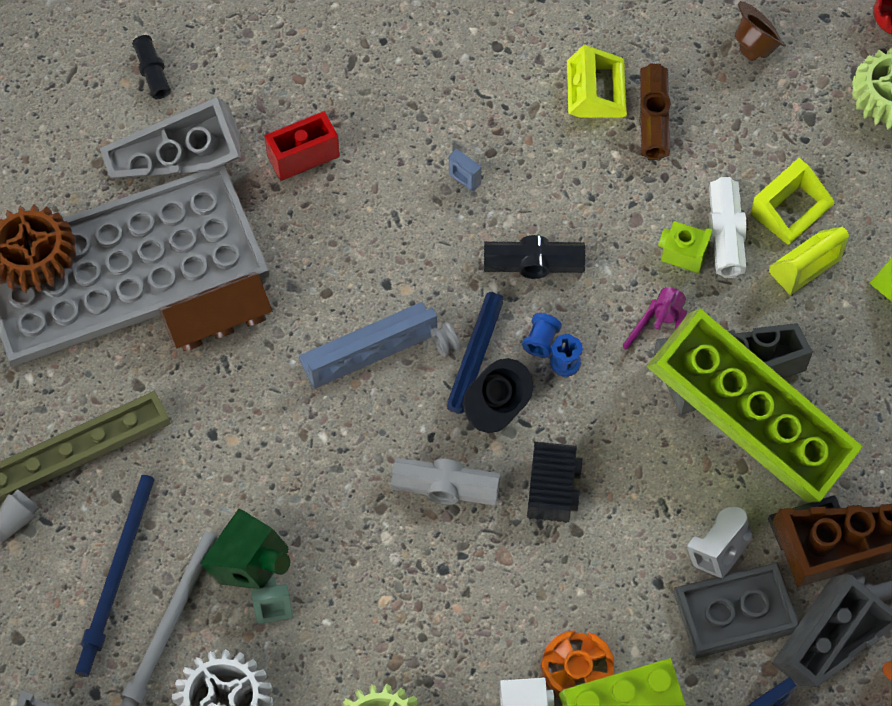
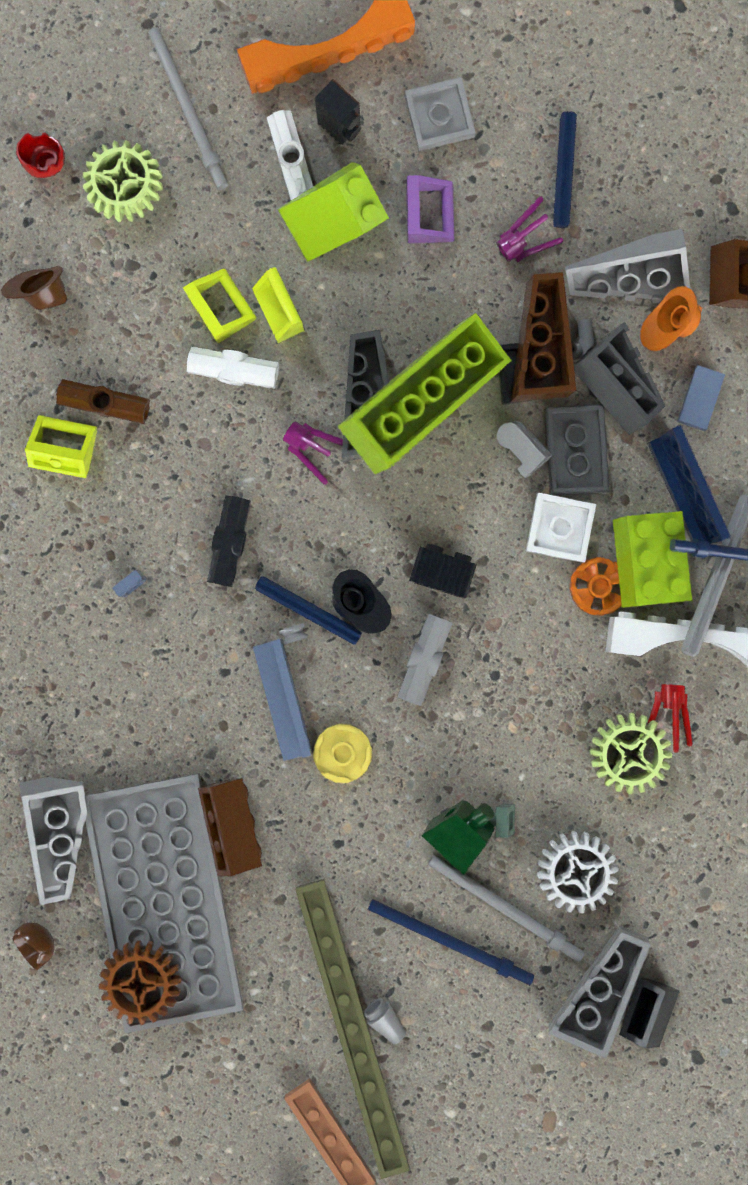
camera: 80 degrees left, 25 degrees up
(58, 150) = (34, 944): none -> reddish brown hair
(302, 146) = (78, 724): red brick -> none
(319, 418) = (342, 753): none -> light yellow tile
(541, 335) = (305, 551): blue bush -> none
(573, 350) = (323, 529): blue bush -> none
(638, 605) = (560, 527): none -> white plate
(685, 246) = (254, 402): lime brick -> none

